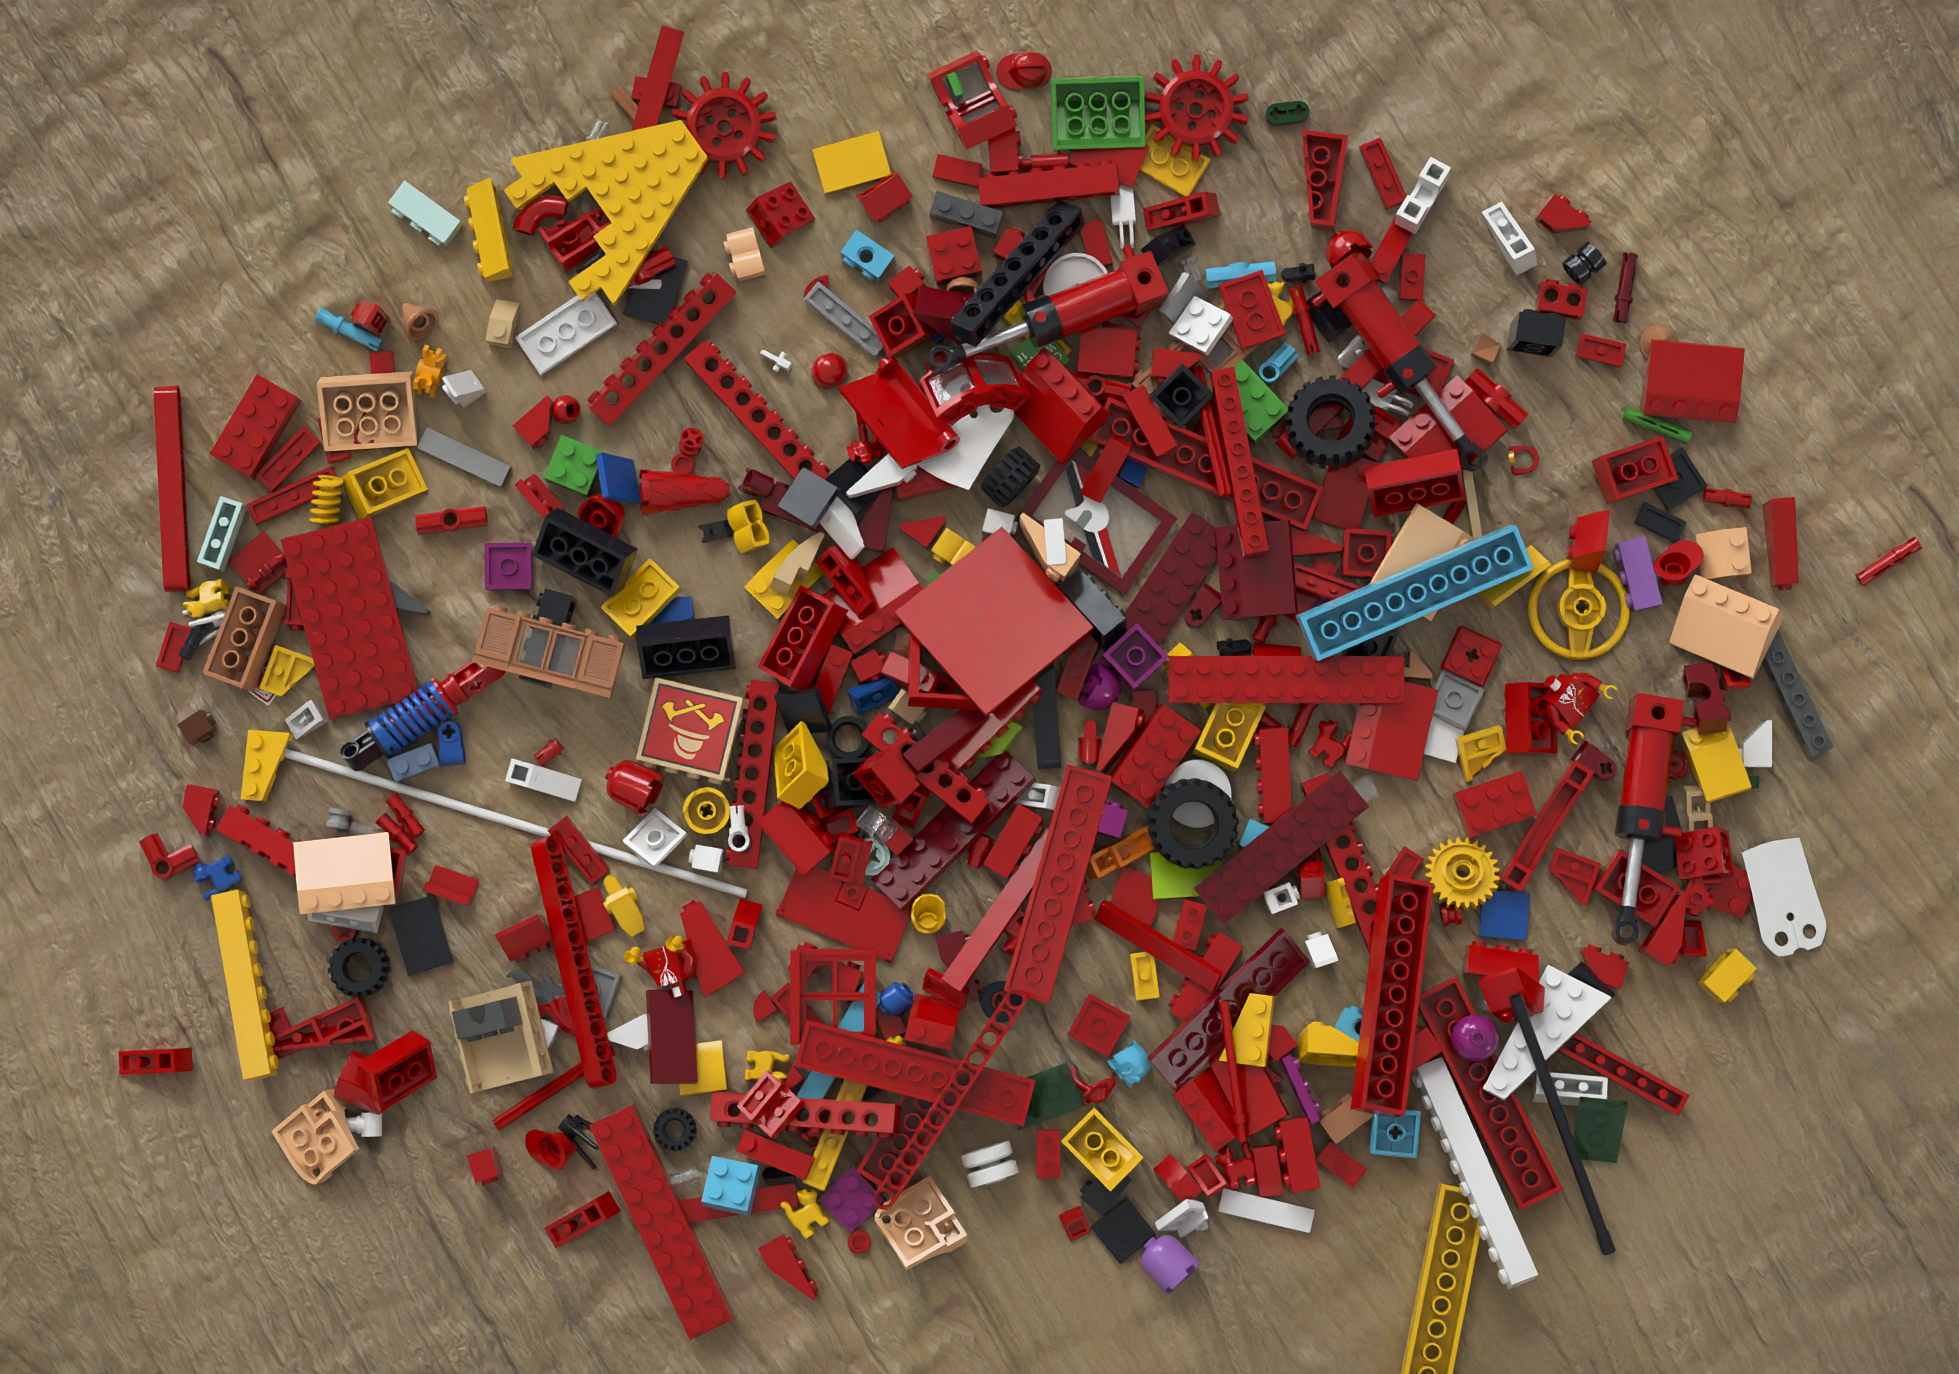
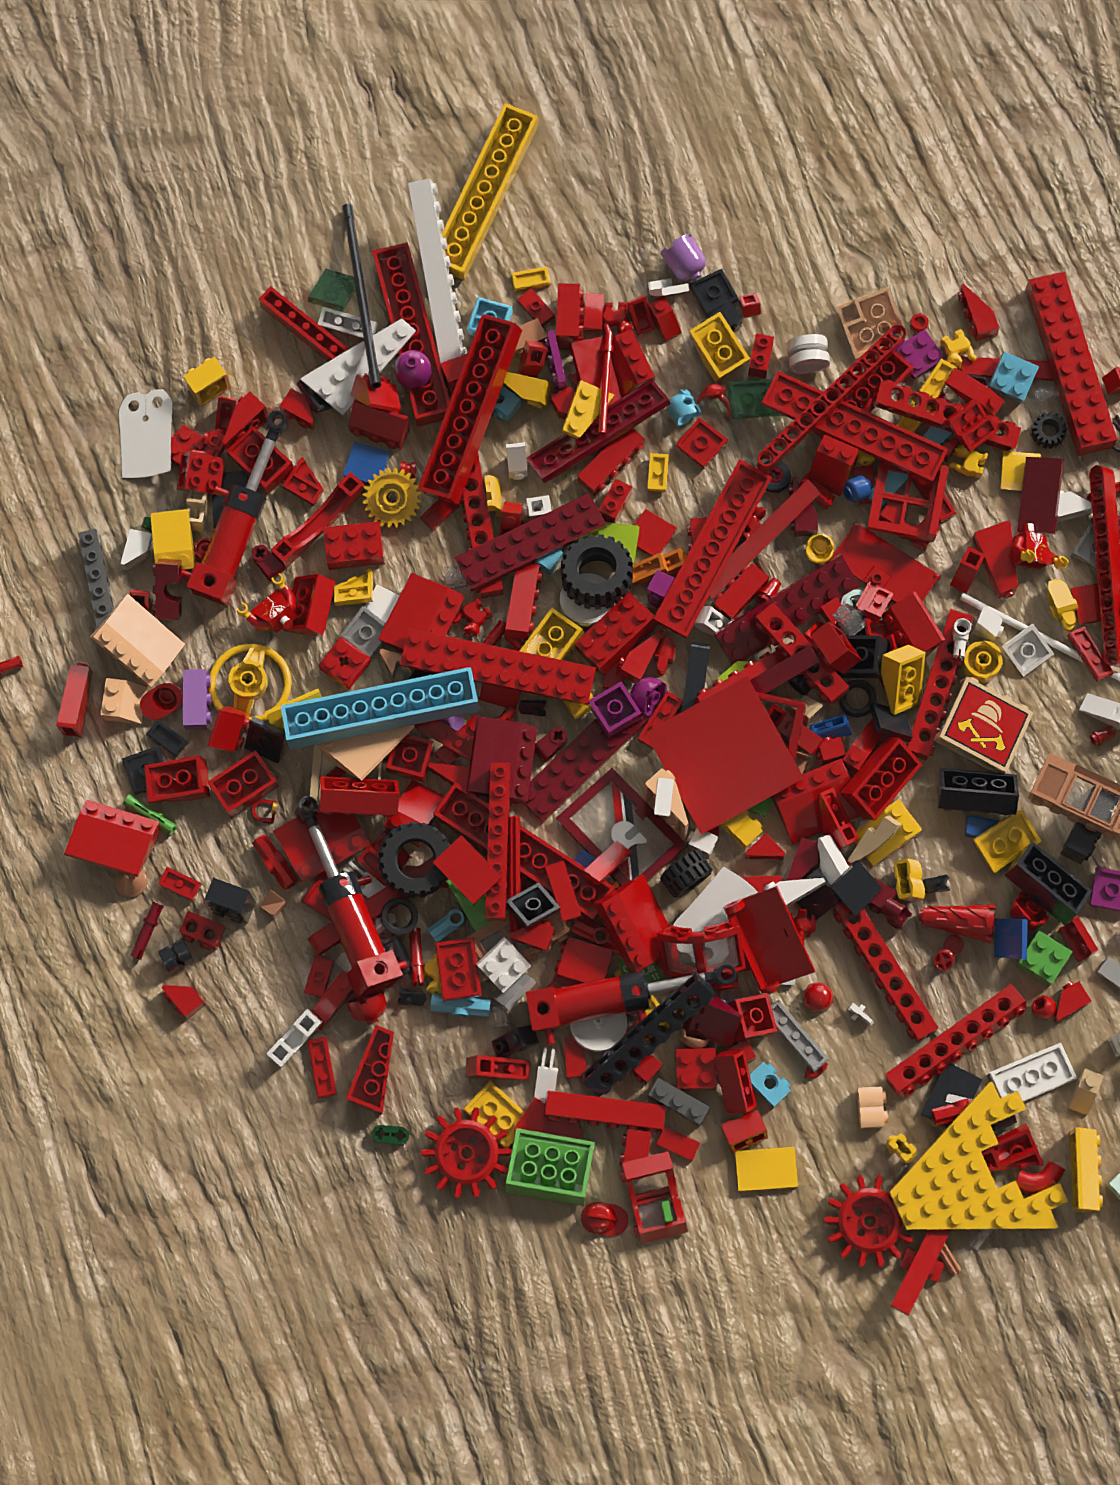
camera: 165 degrees left, 10 degrees down
(633, 786) = (1038, 692): red cylinder -> none
(704, 212) = (901, 1148): none -> yellow animal
(763, 1006) = (962, 508): red tile -> none
(779, 213) = (834, 1137): red bracket -> none
(906, 246) = (735, 1081): none -> red brick
(1046, 161) = (601, 1134): red cylinder -> none
(1095, 606) = (639, 752): brick -> none
(1158, 945) = (643, 488): red tile -> none
(1266, 1210) = (599, 284): white tile -> none
(1267, 414) = (467, 870): none -> red tile
(1330, 1088) = (532, 358): none -> red slope
(1331, 342) = (399, 901): none -> black tyre
(1356, 1201) = (530, 279): none -> yellow tile
(1510, 238) = (231, 990): white slope -> none
(1543, 538) = (265, 739): none -> black tile
(1556, 481) = (243, 784): none -> red brick
(1727, 497) = (109, 745): red pin -> none

